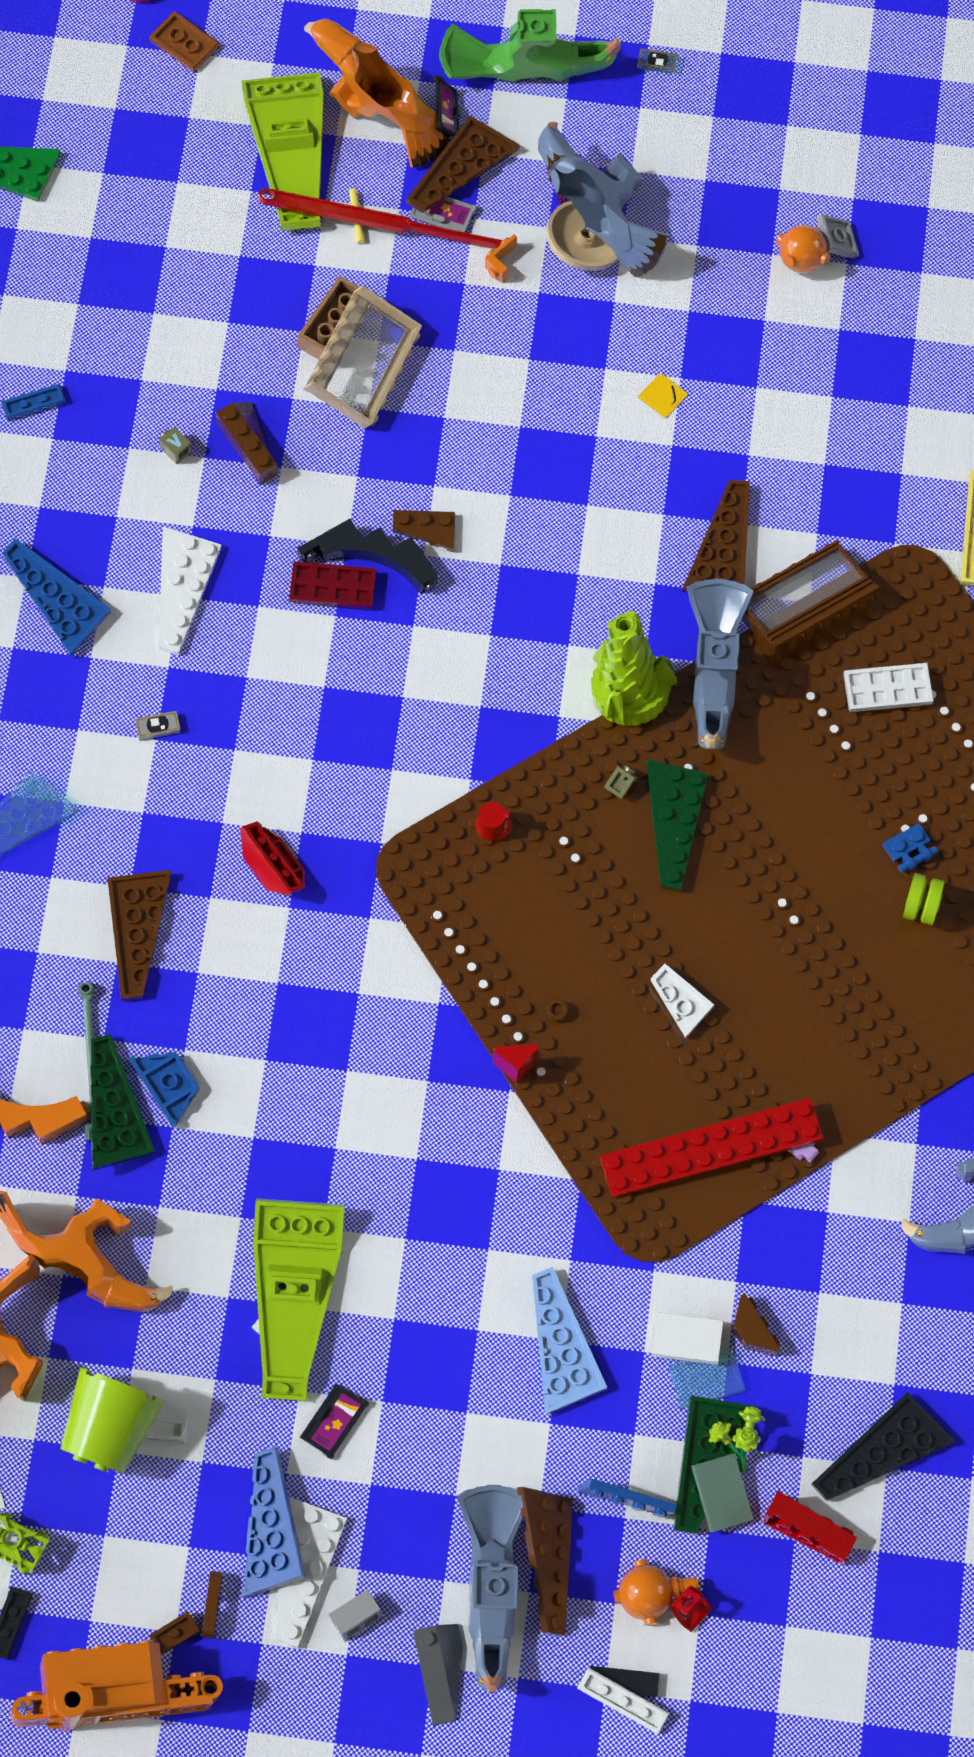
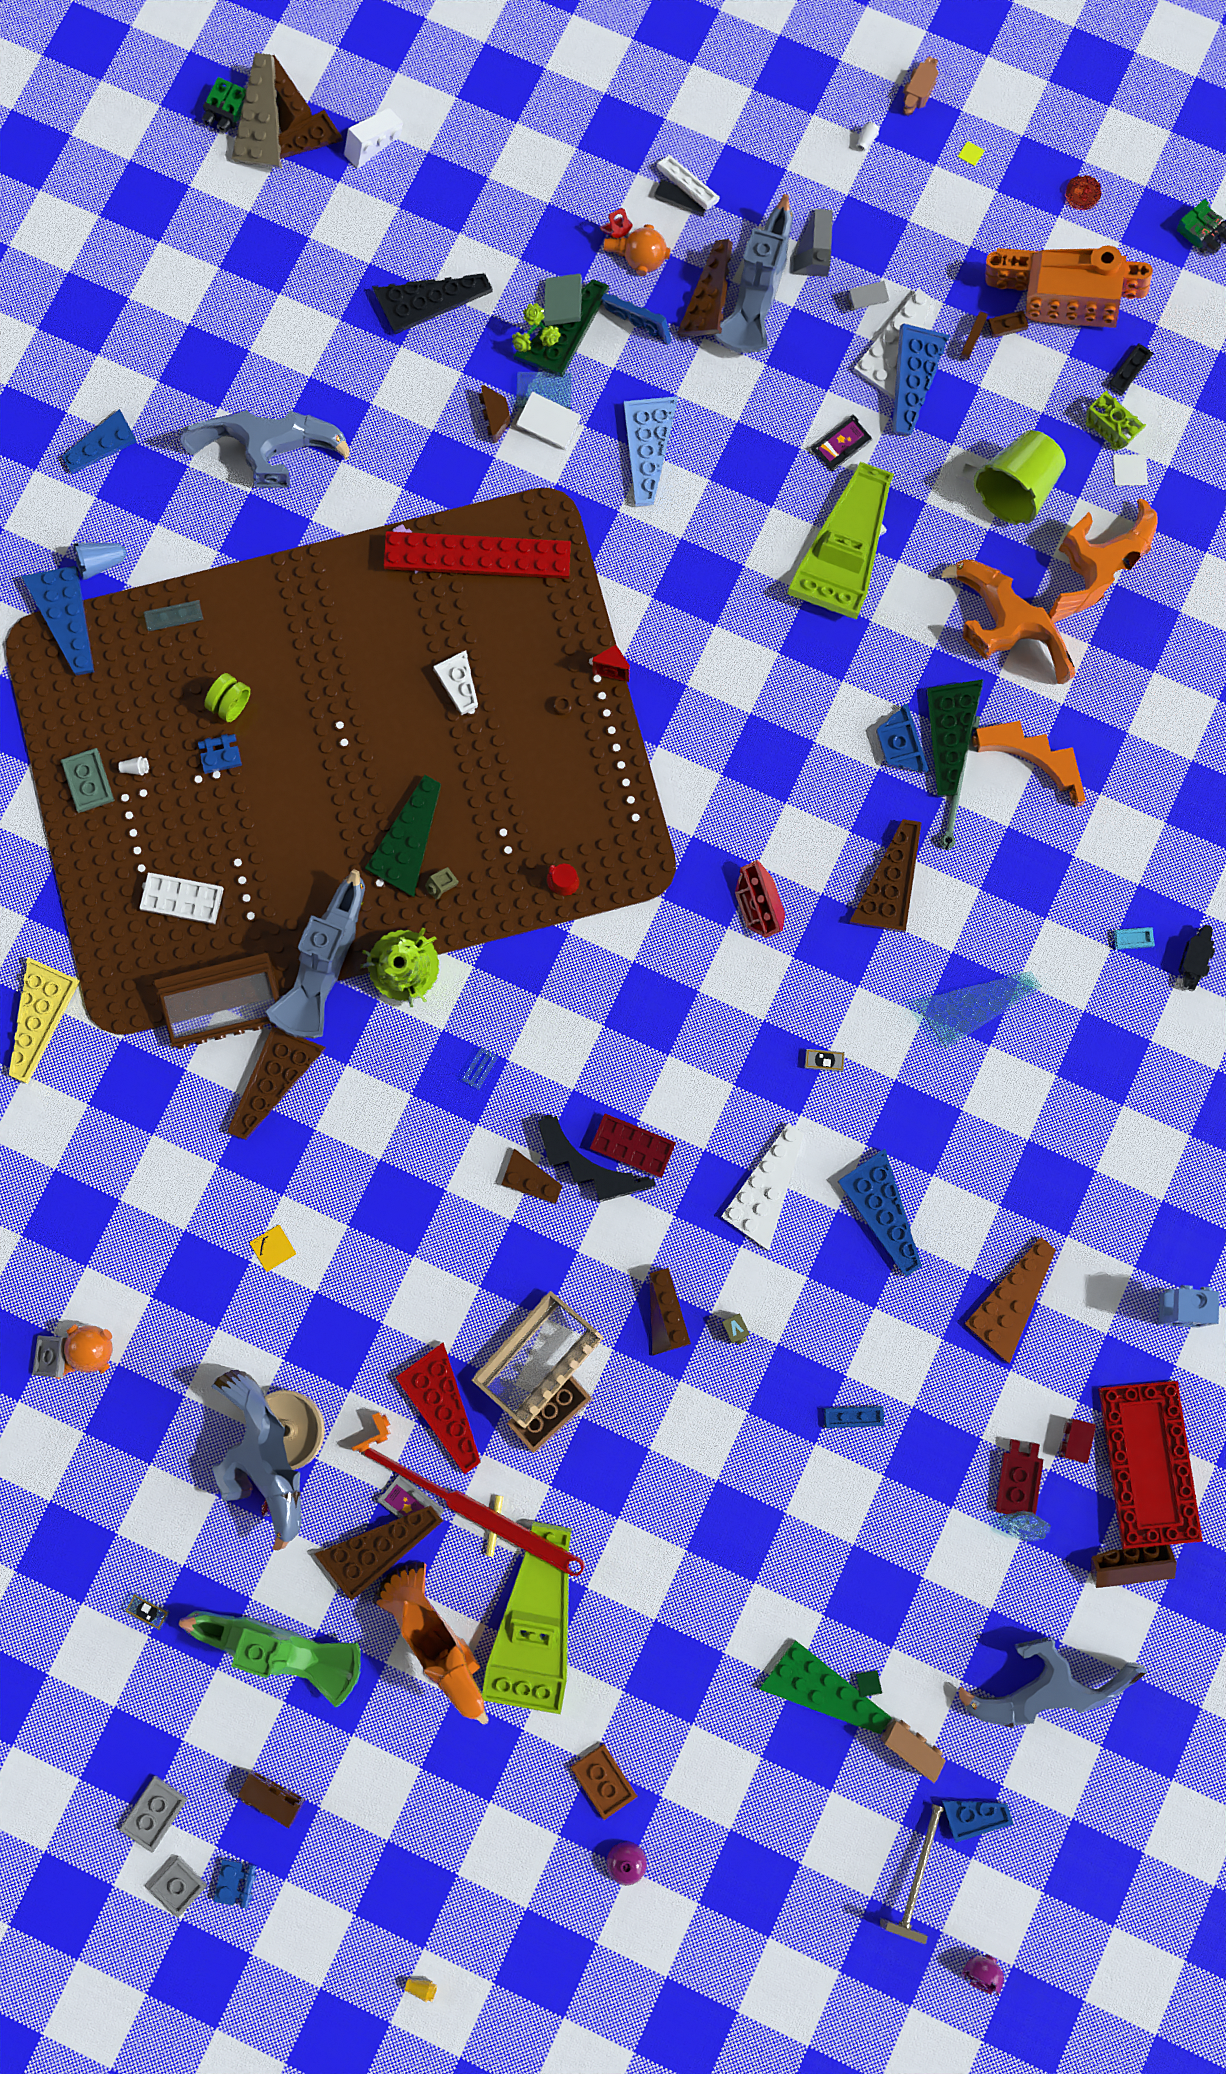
camera: 160 degrees left, 10 degrees up
(447, 107) = (370, 1615): door -> none
(452, 308) = (437, 1397): none -> red wing
(512, 632) = (472, 1082): none -> clear light blue tile
(809, 1528) = (507, 257): red wedge -> none

